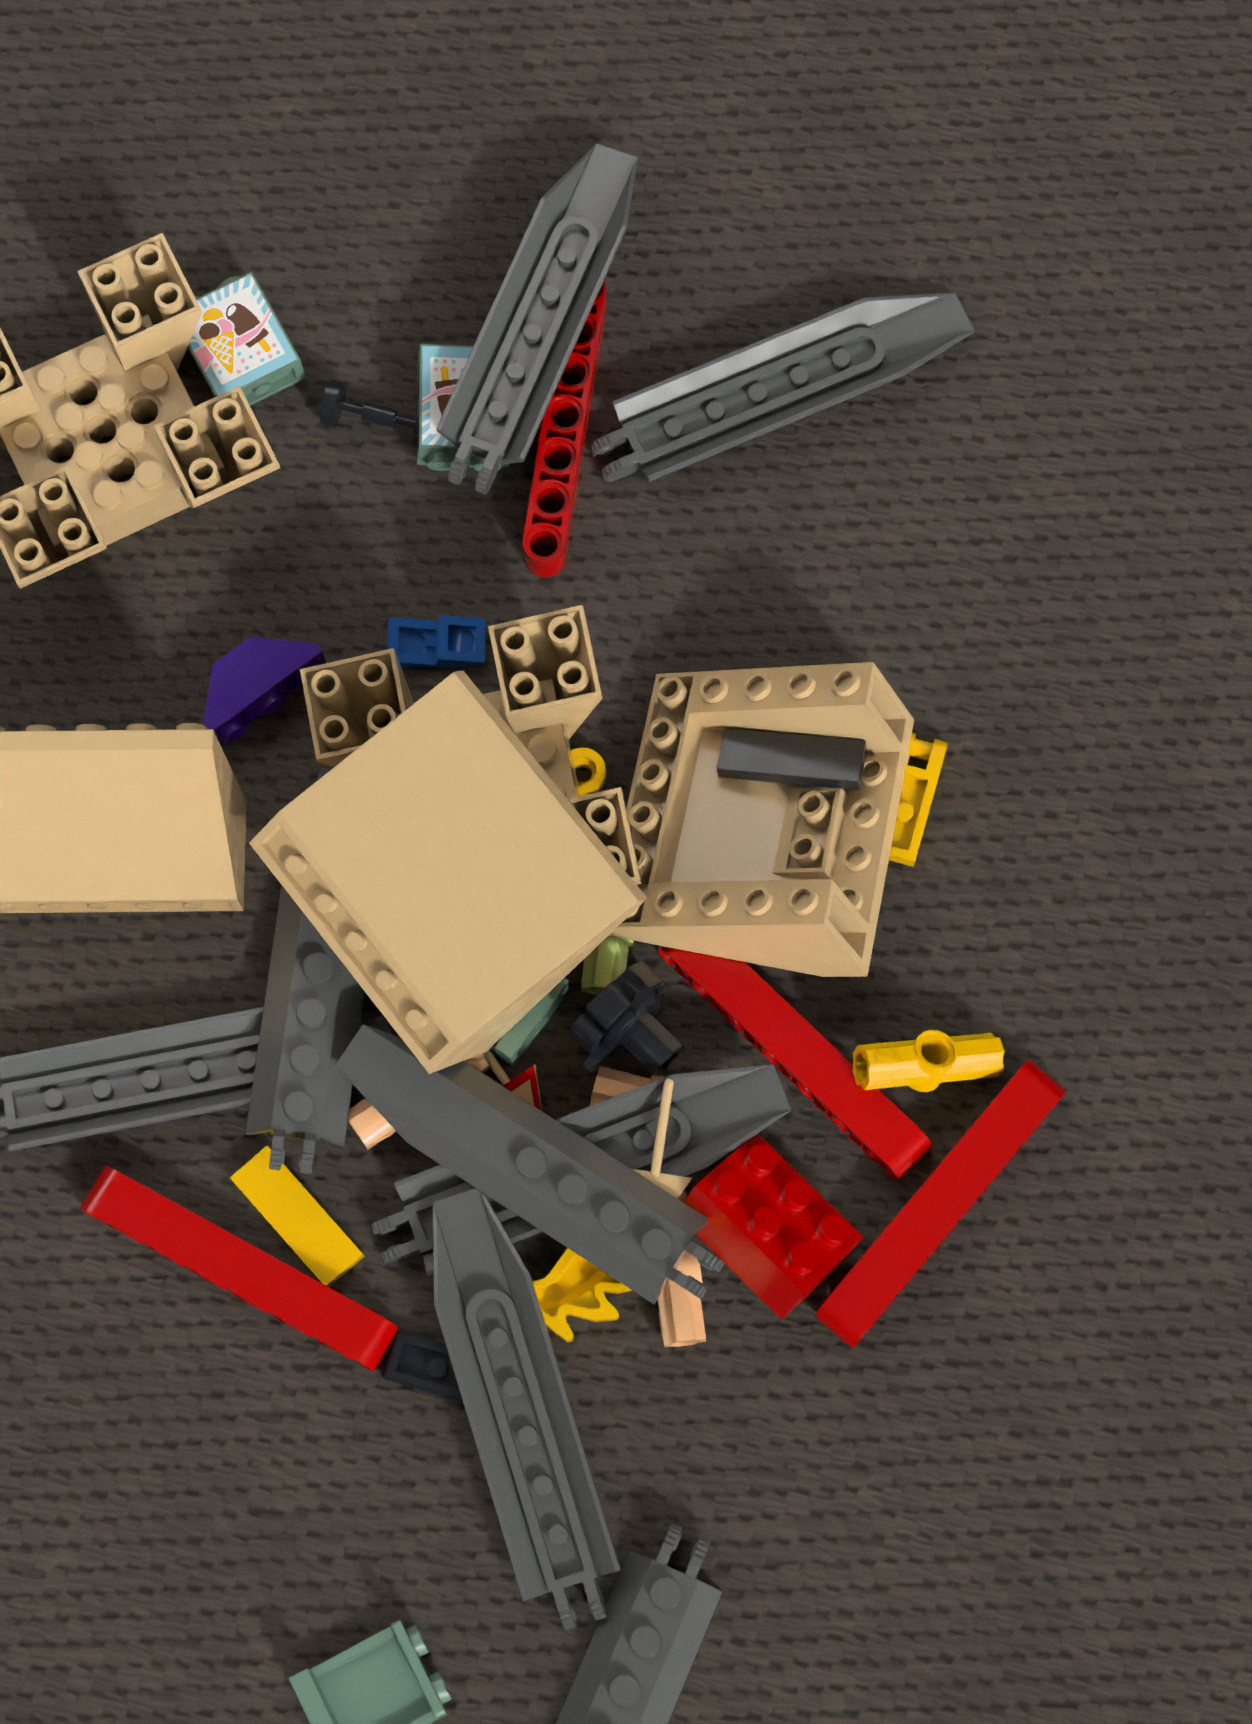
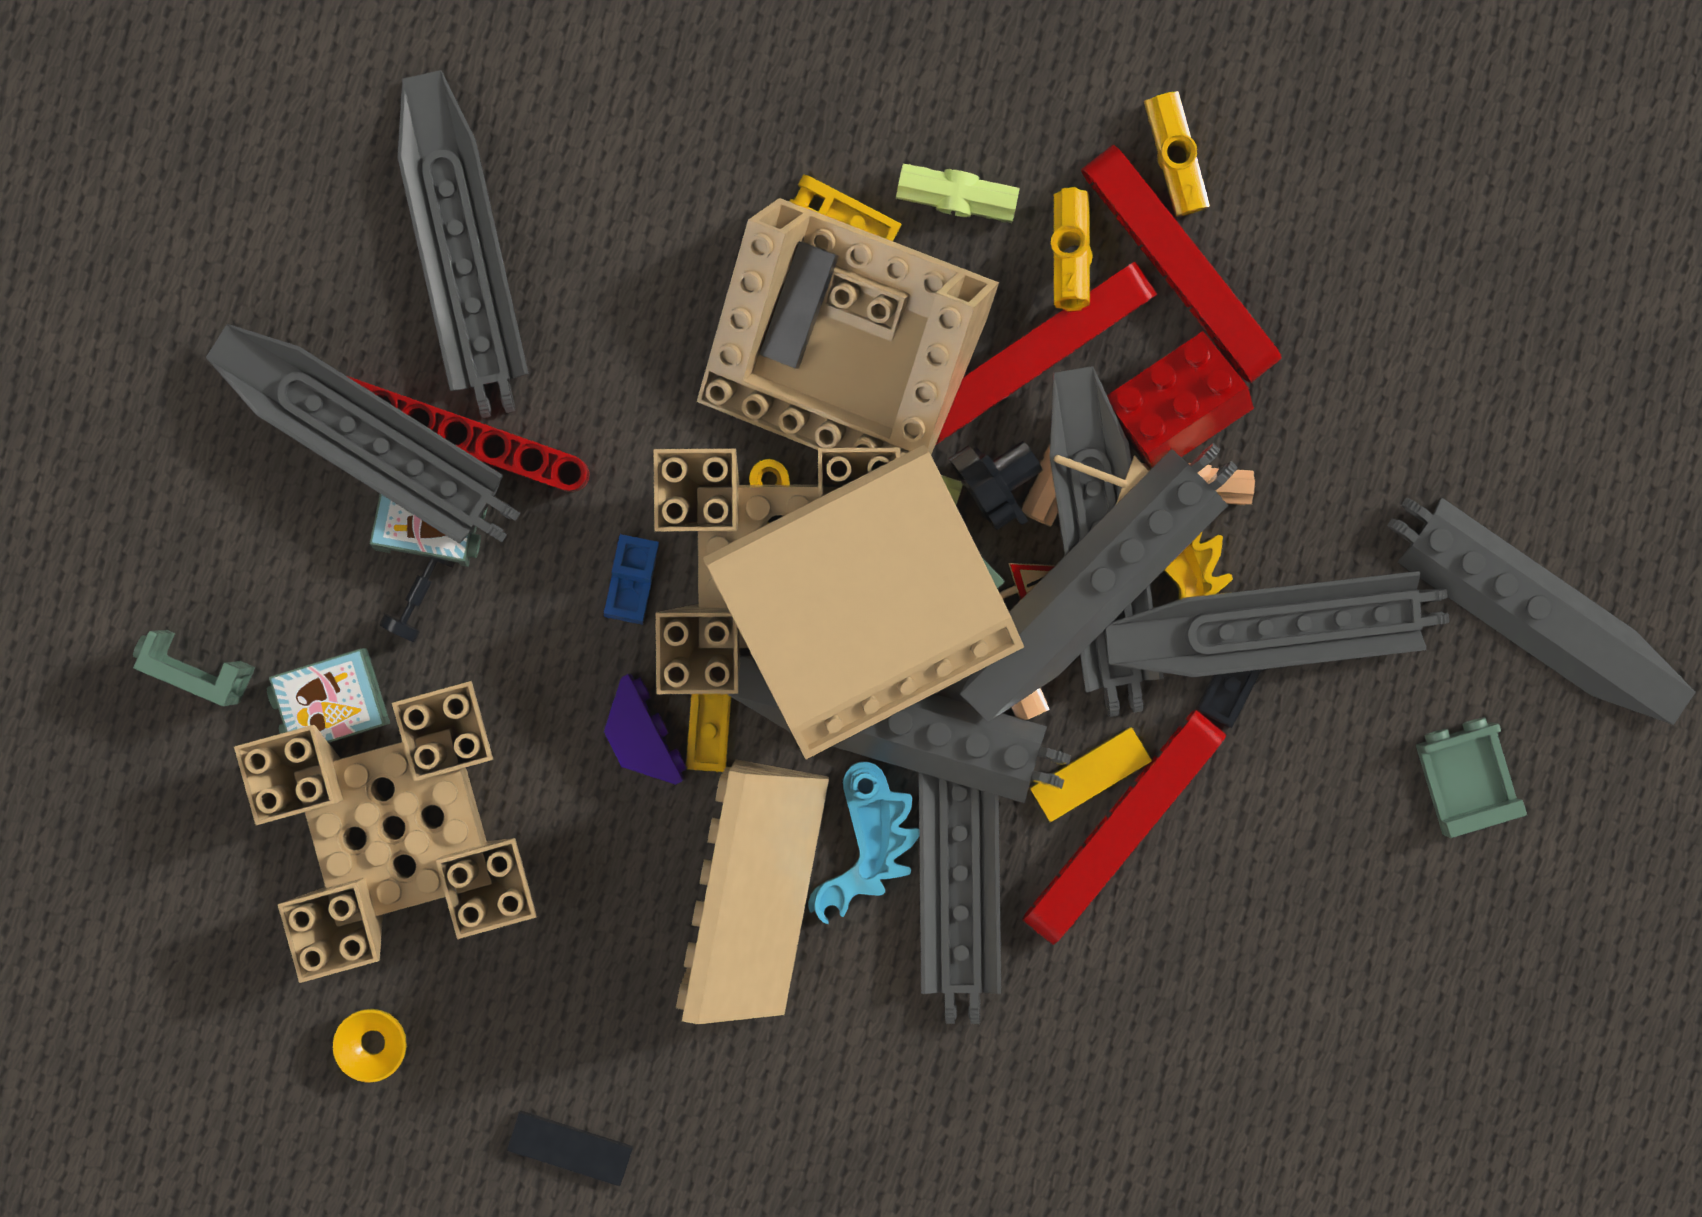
camera: 85 degrees left, 15 degrees up
(198, 971) = (876, 823): none -> medium azure animal
(251, 152) = (223, 690): none -> sand green panel
(274, 762) = (708, 732): none -> yellow tile
(966, 920) = (957, 192): none -> yellowish green piece
(1100, 1155) = (1171, 129): none -> yellow piece

